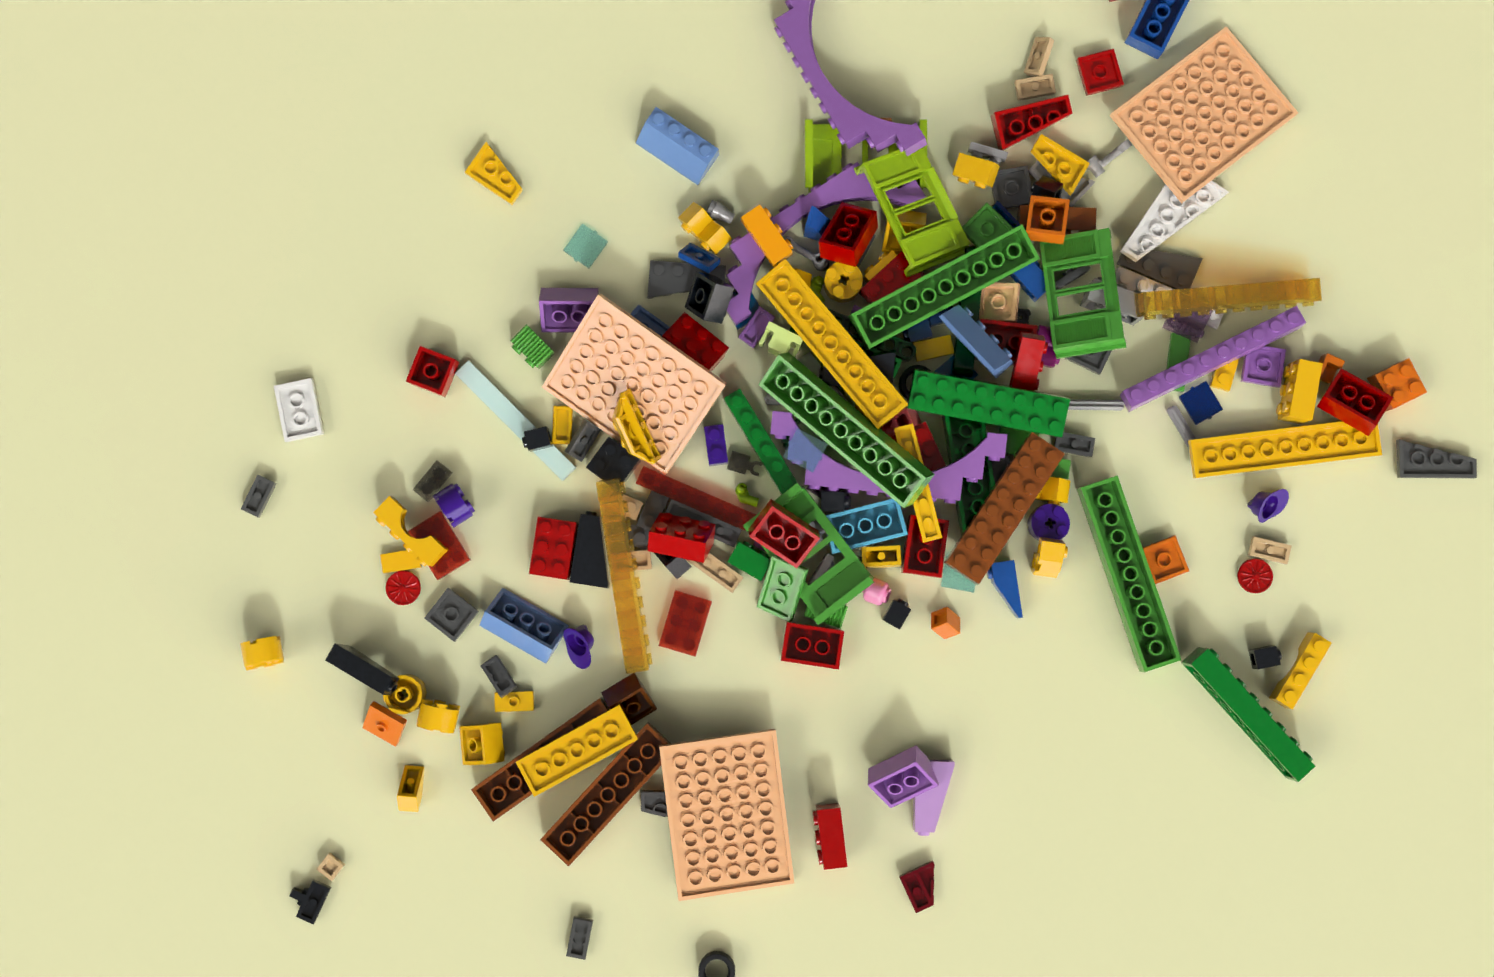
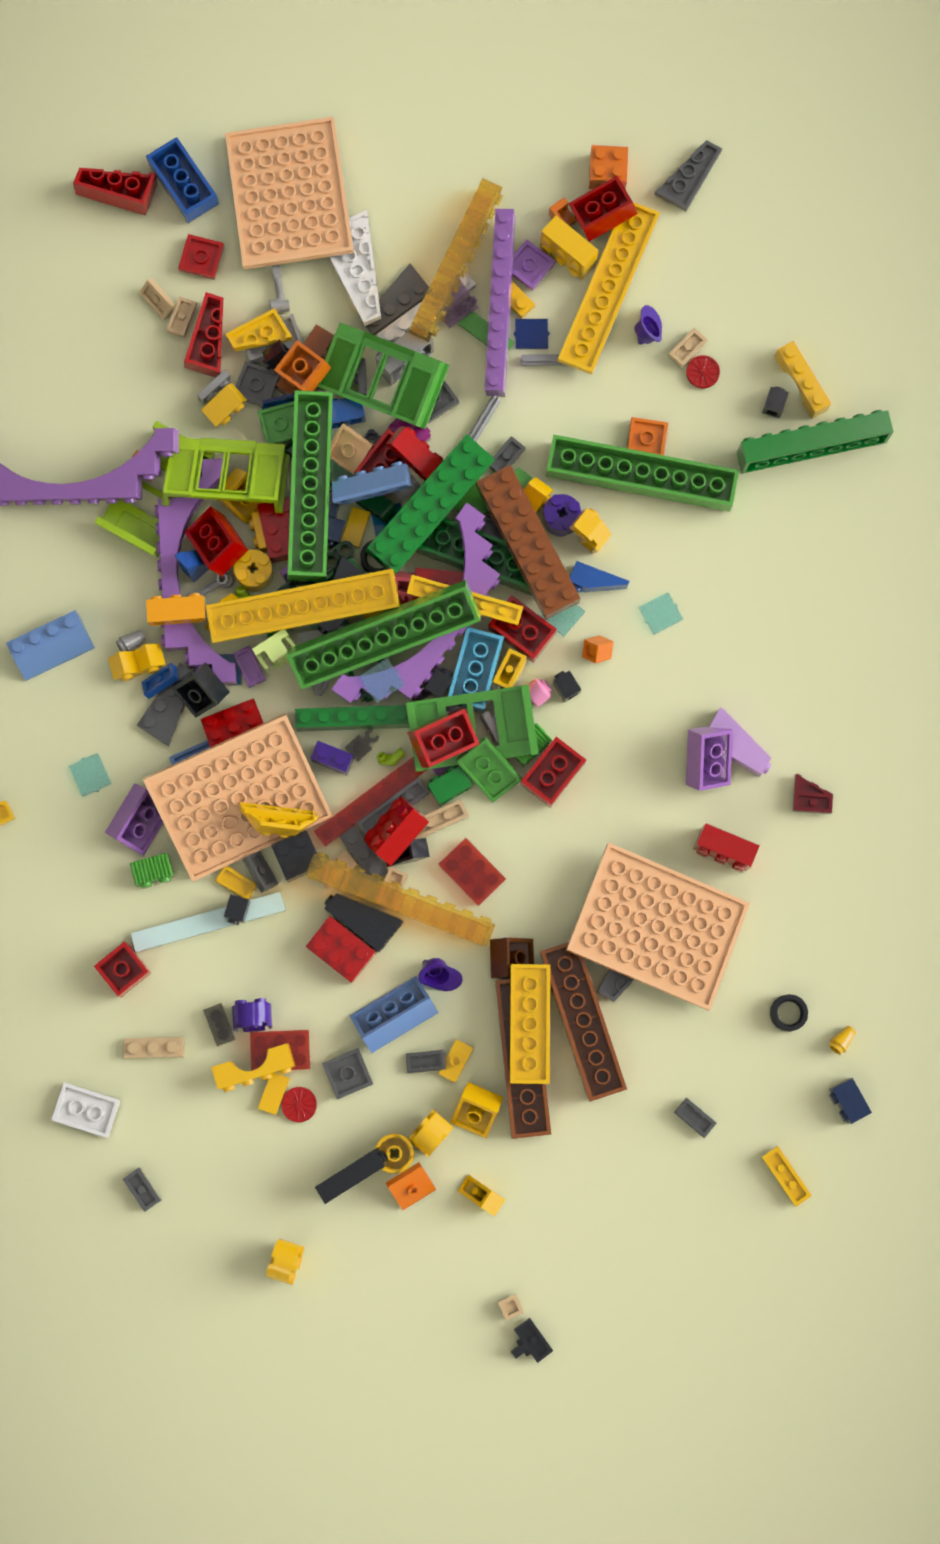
camera: 65 degrees left, 5 degrees down
(383, 436) = (153, 1047): none -> tan plate
(1000, 380) = (407, 492): none -> light grey cone
(1010, 660) = (660, 613): none -> clear light blue piece

